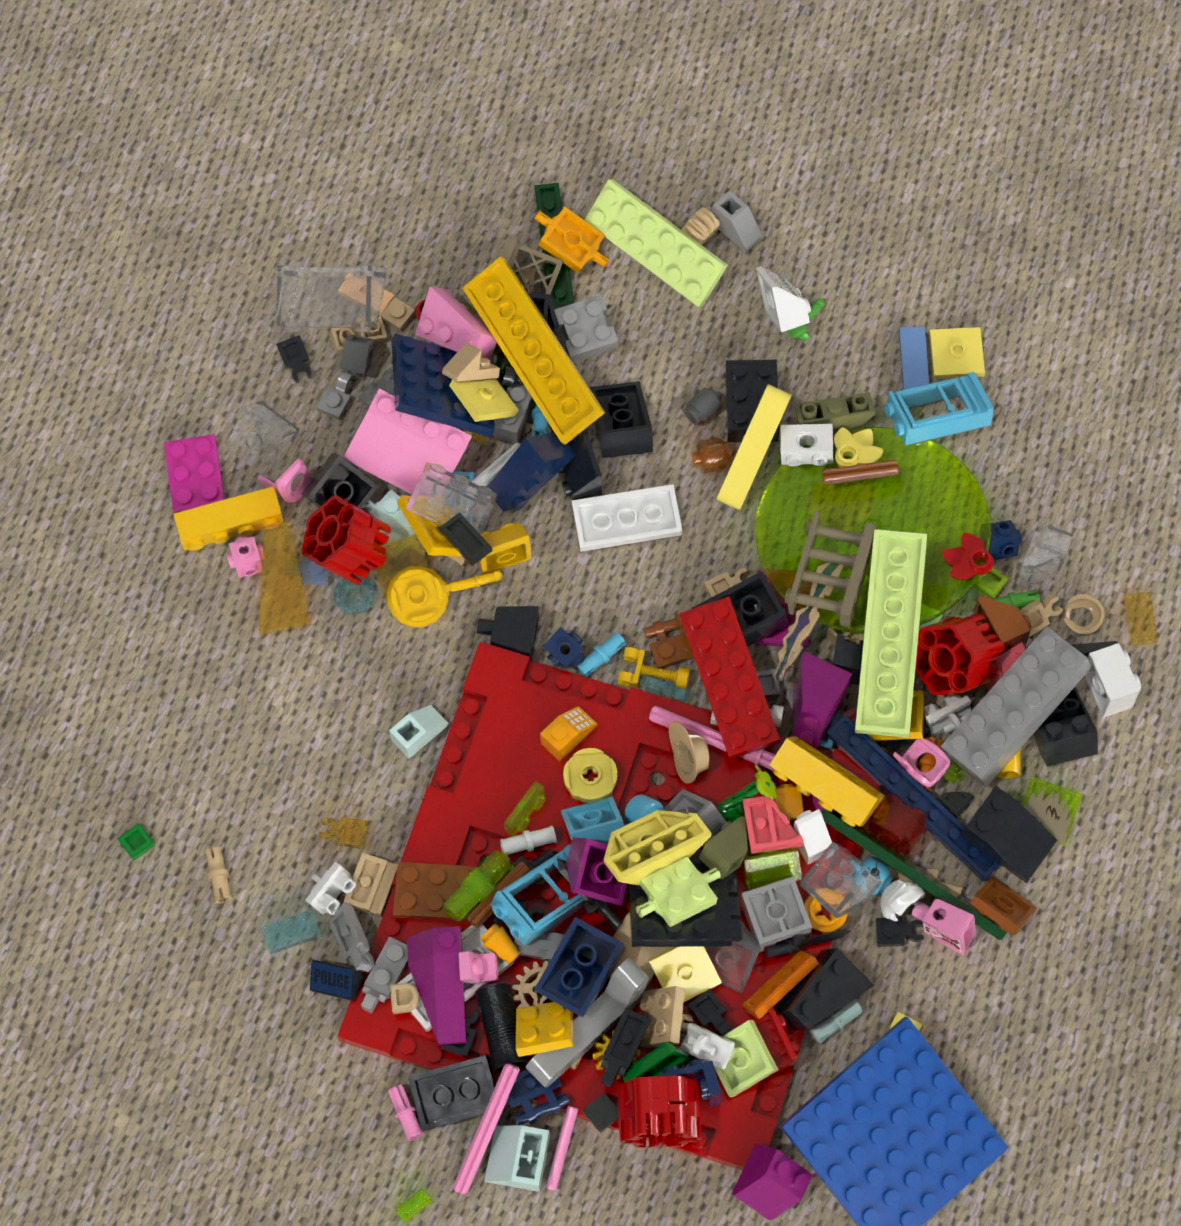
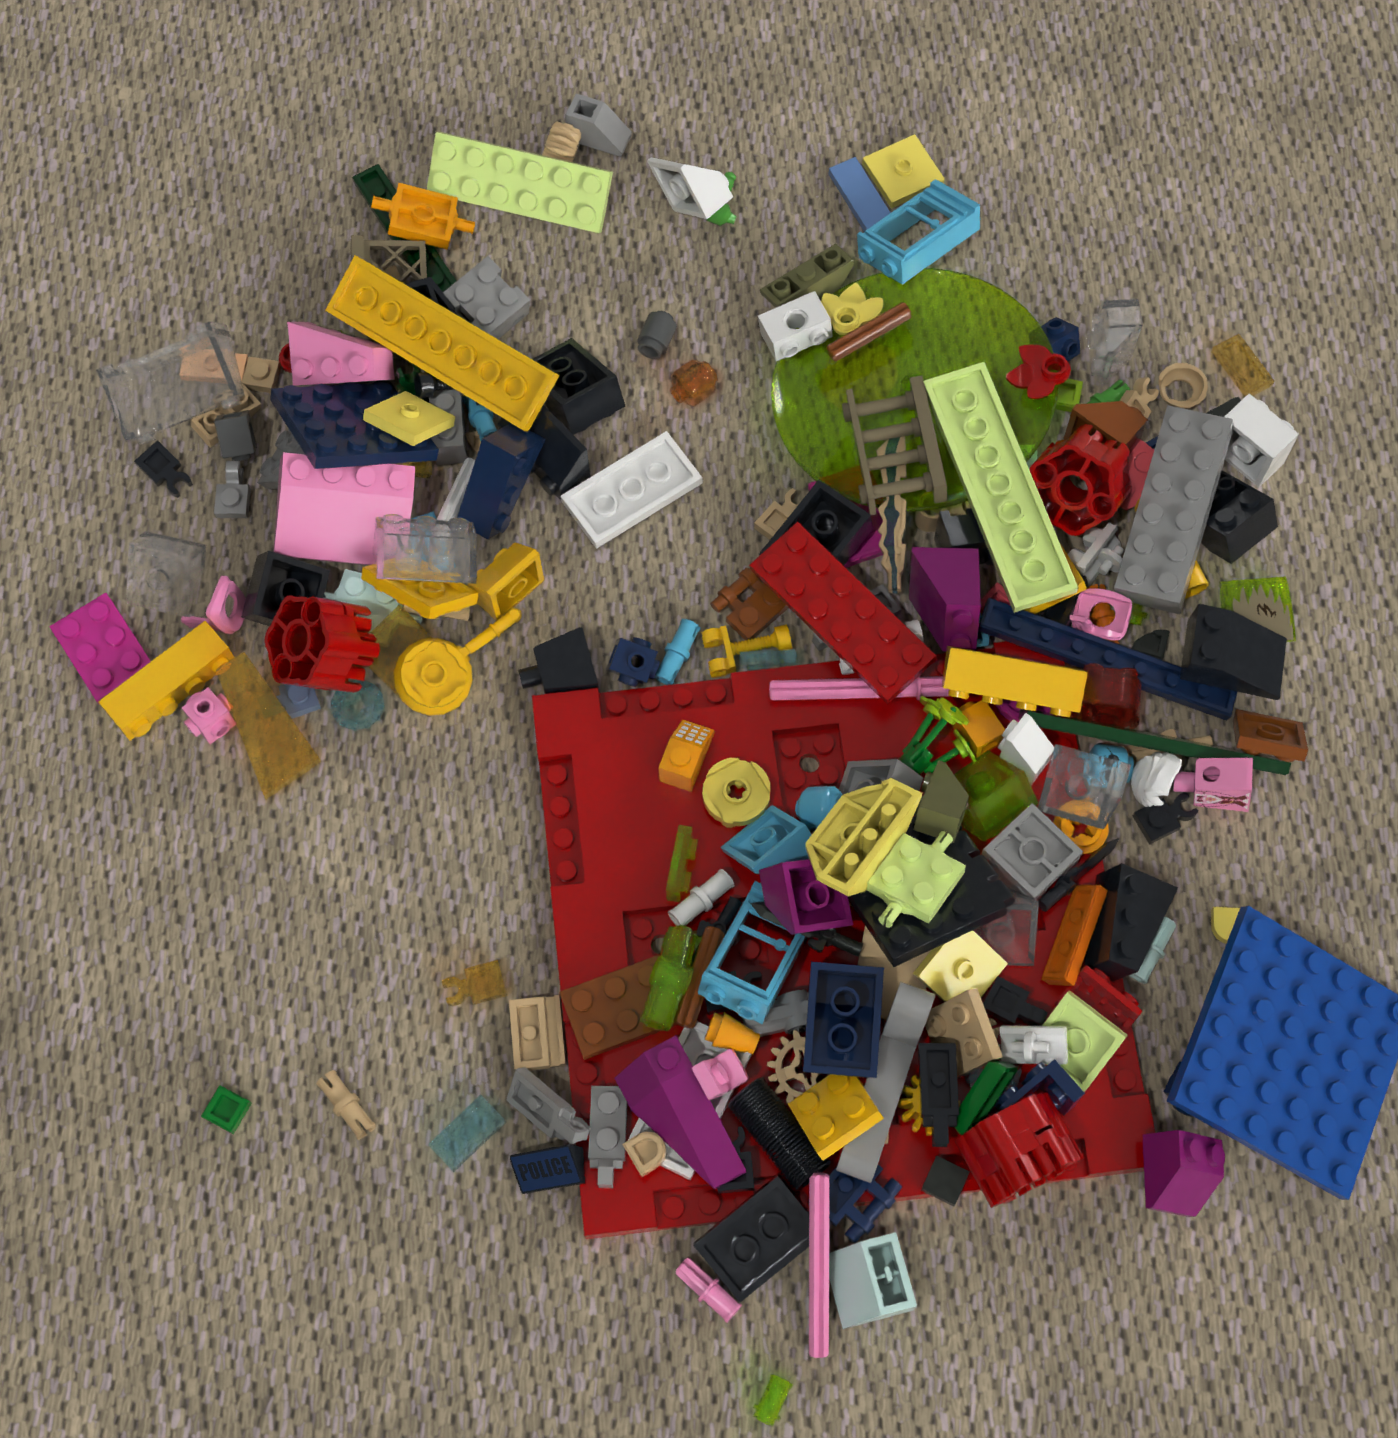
camera: 25 degrees left, 0 degrees up
(329, 887) = (488, 1060): white hips -> none
(417, 730) = (506, 829): light aqua slope -> none
(465, 539) = (464, 583): pearl dark grey tile -> none
(469, 365) = (375, 387): tan slope -> none
(562, 1148) = (916, 1245): bright pink bar -> none
(689, 751) = (837, 715): tan piece -> none
(744, 389) = (709, 306): black brick -> none
(753, 447) = (739, 351): light yellow beam -> none
(768, 827) = (975, 758): coral wing -> none

